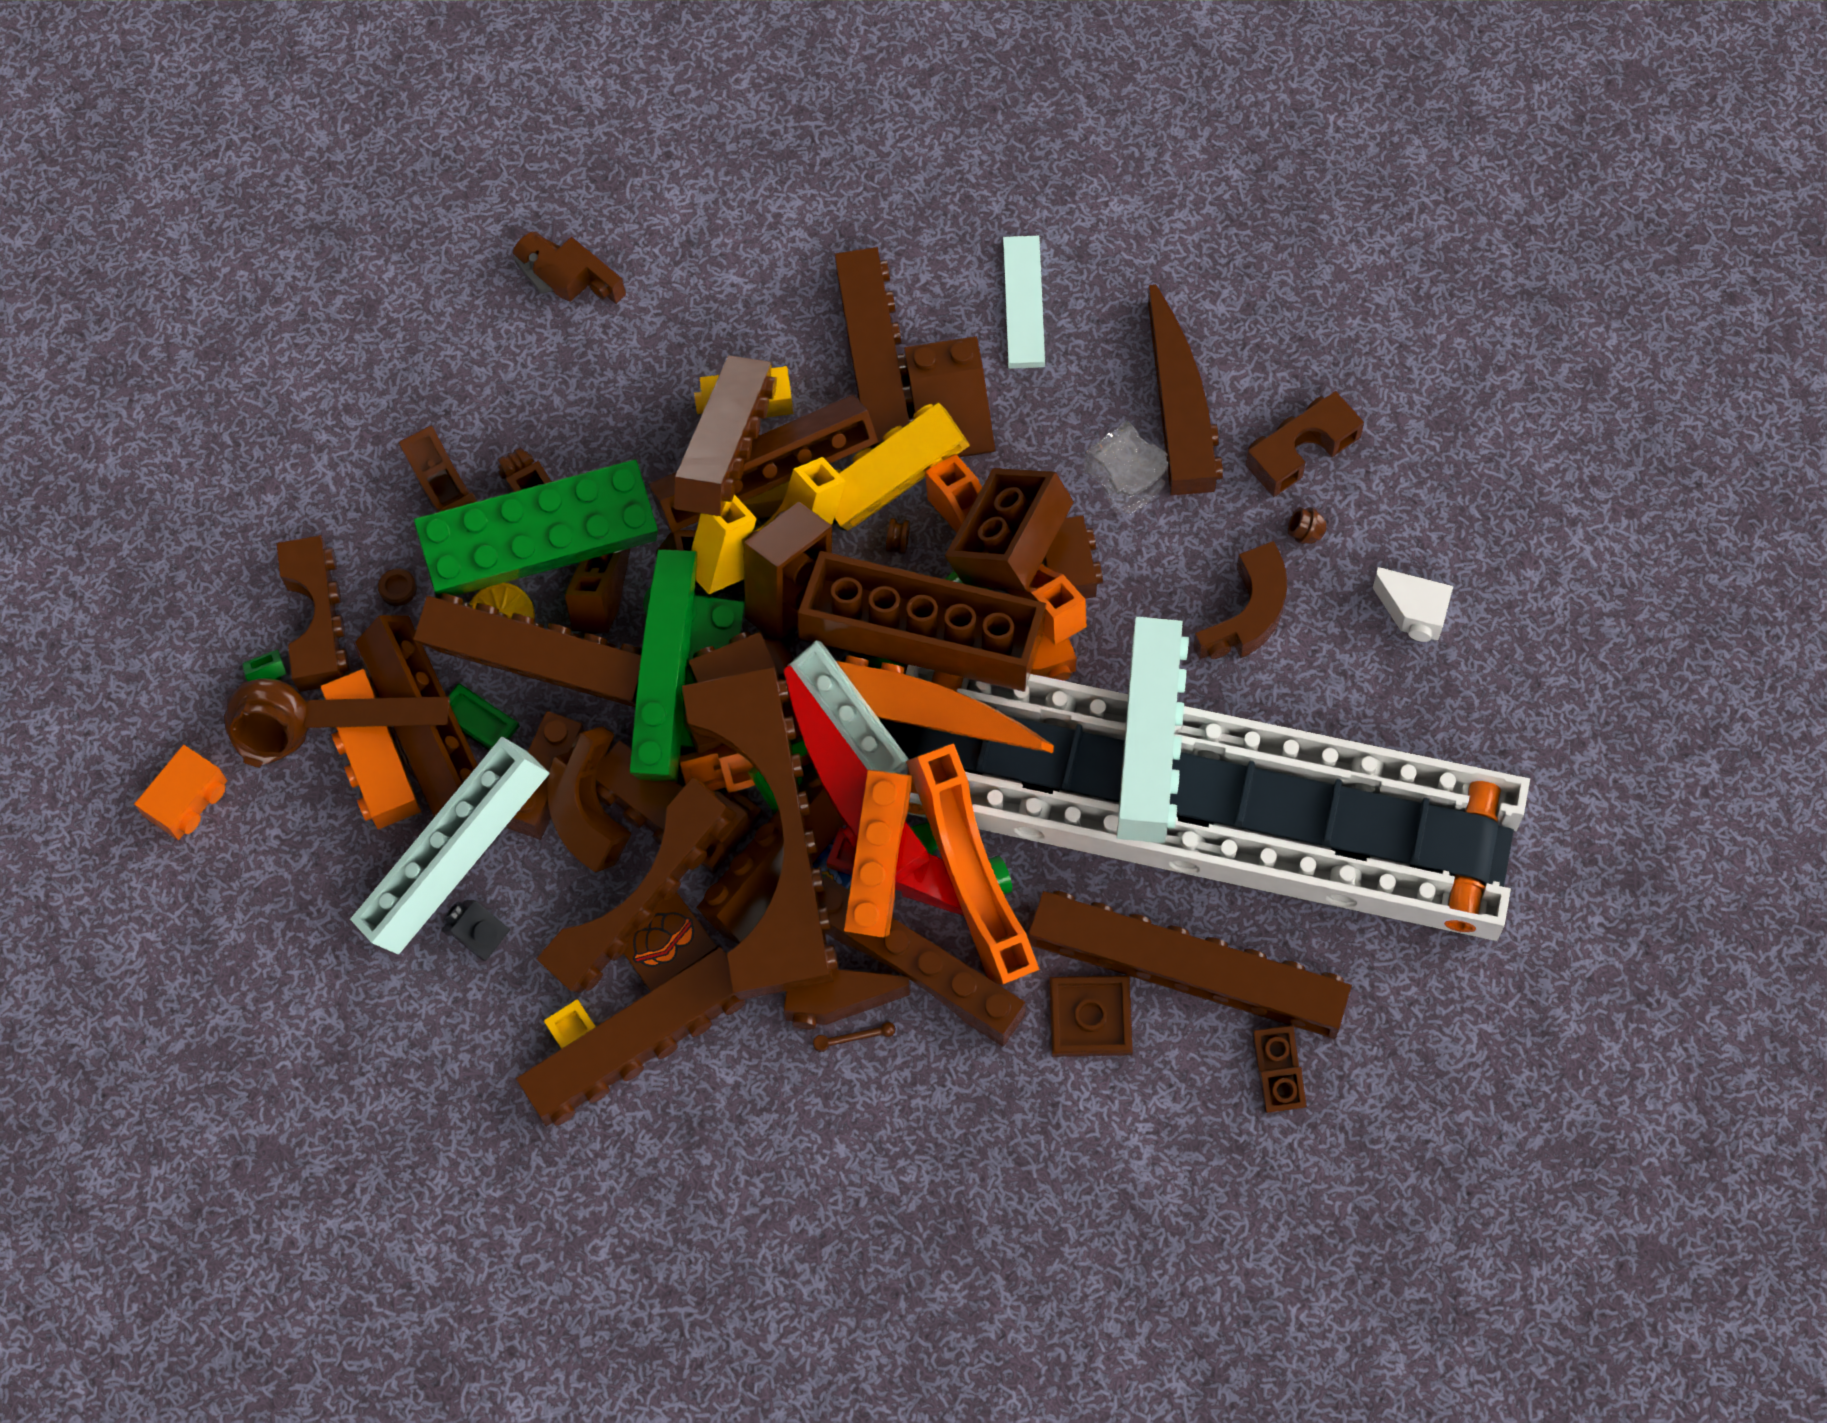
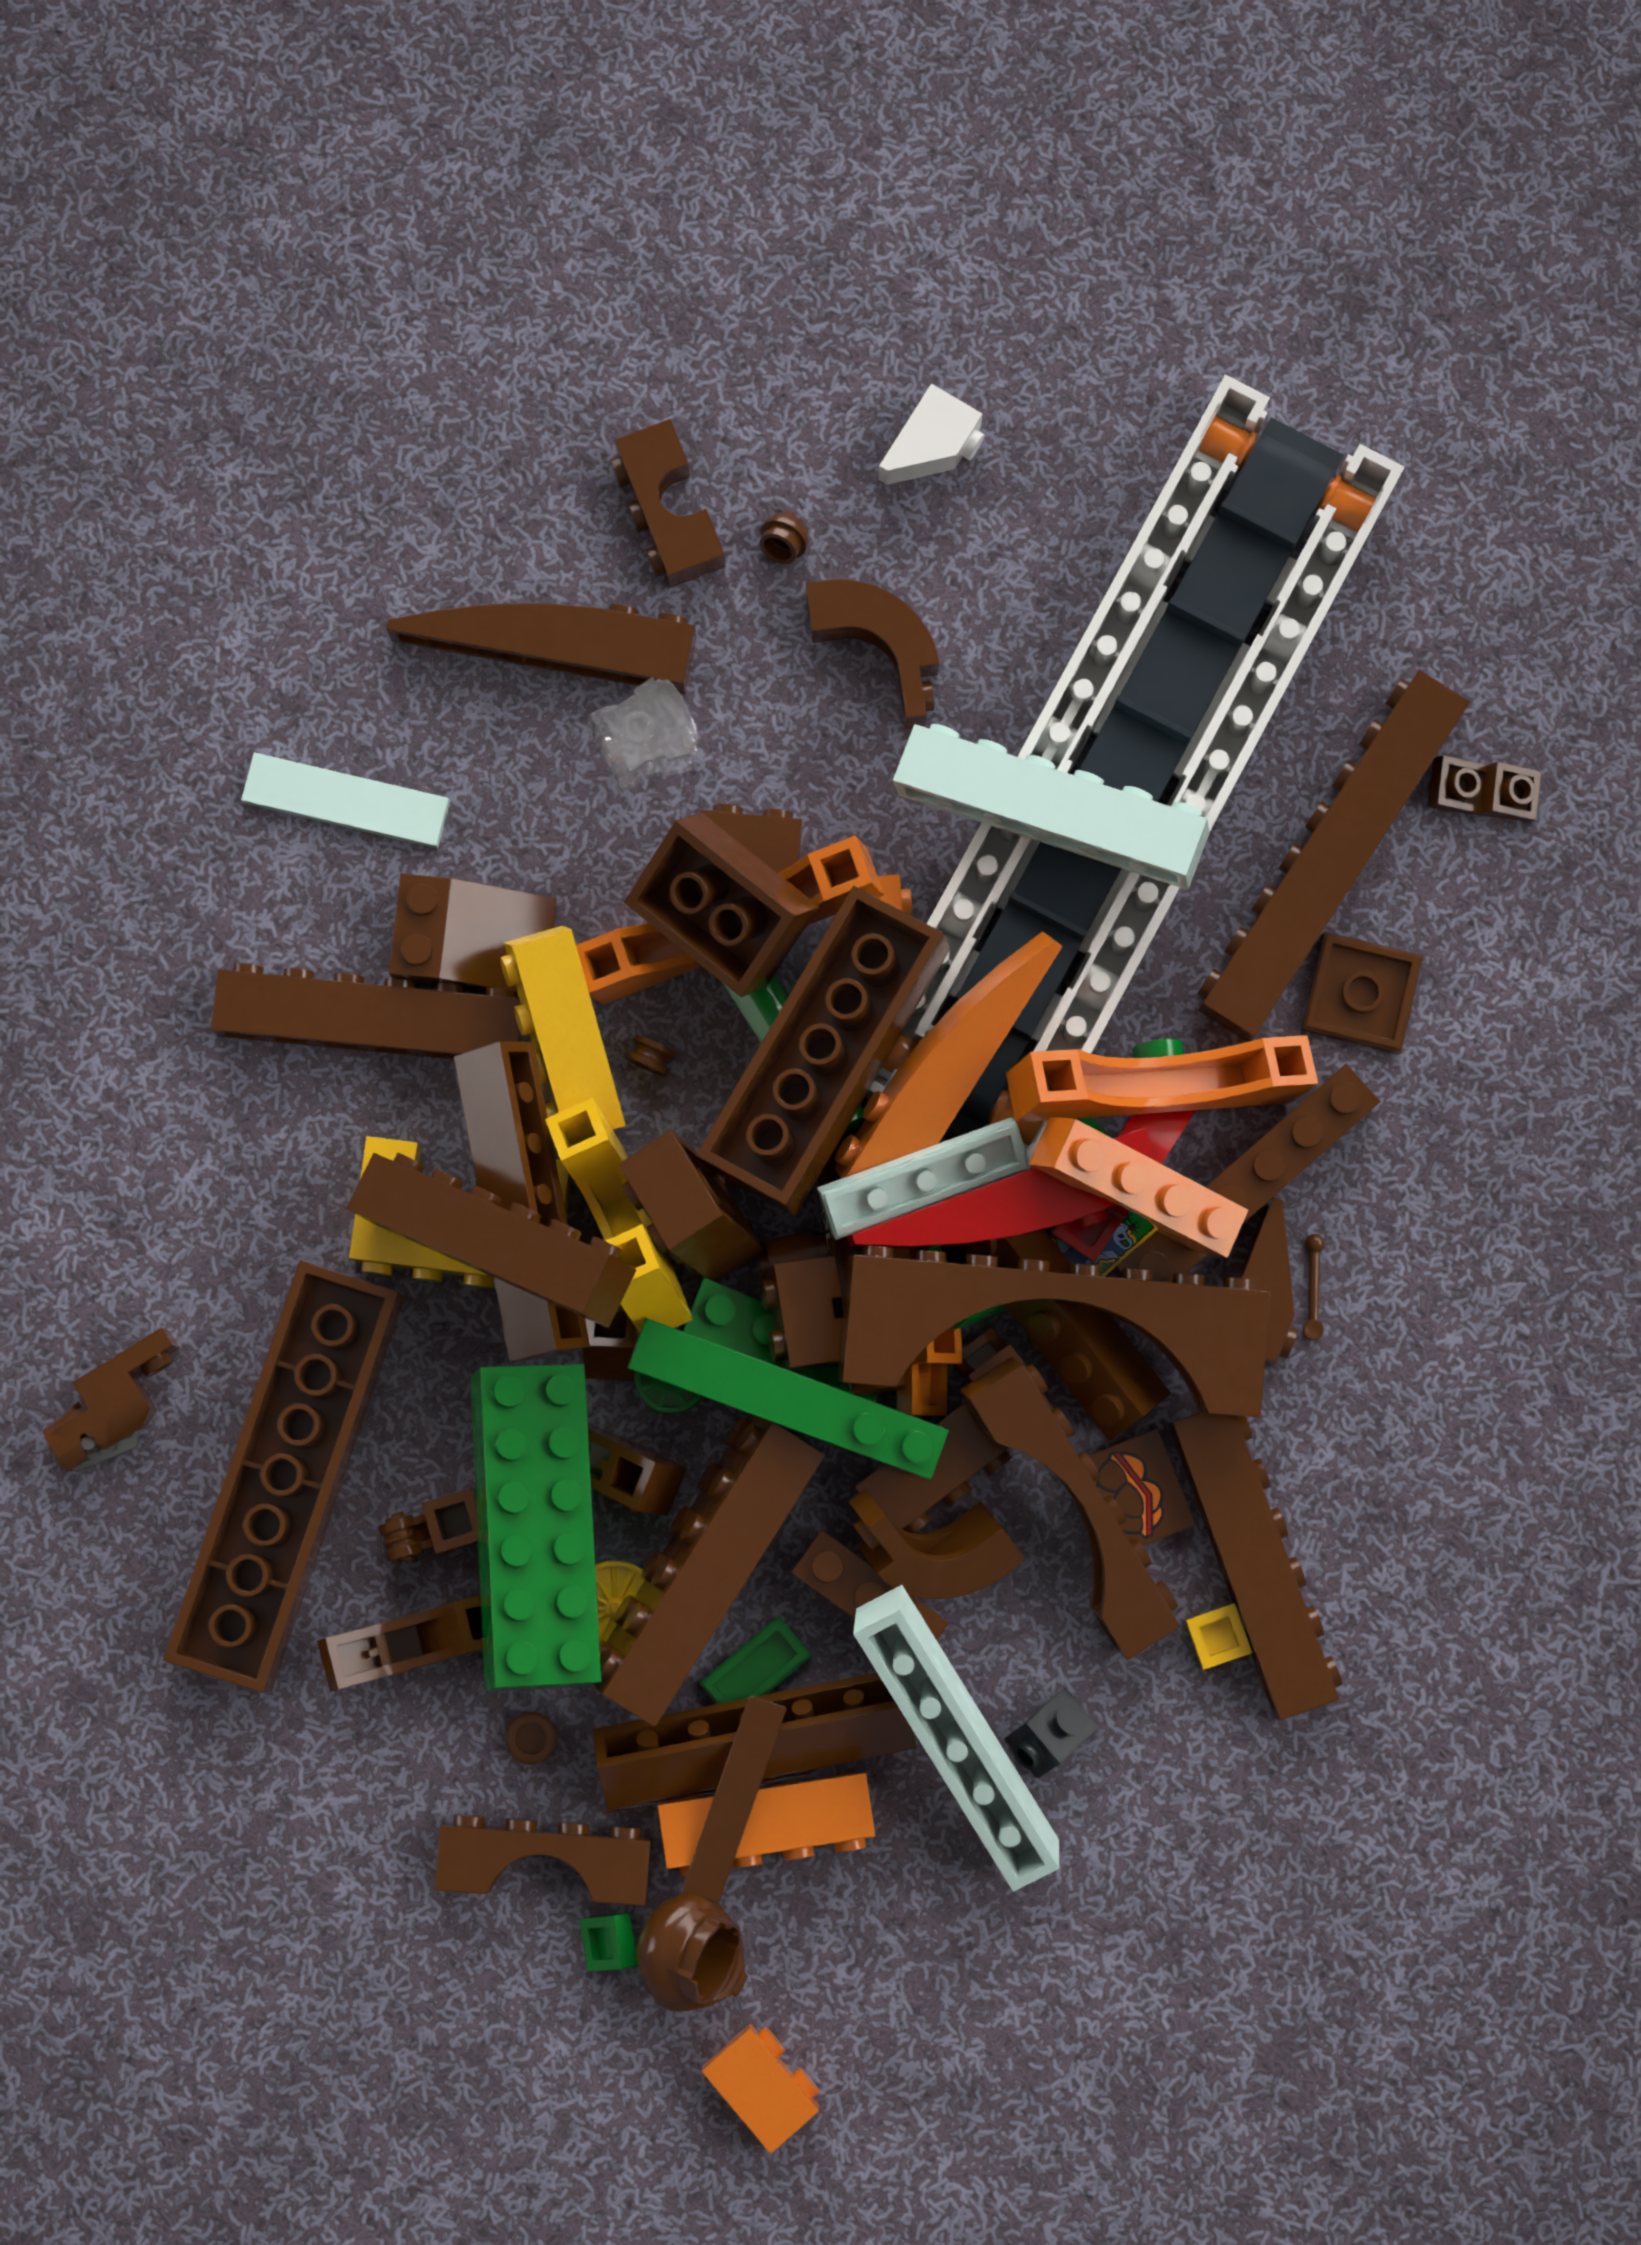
camera: 80 degrees left, 15 degrees up
(540, 381) = (284, 1477): none -> reddish brown brick

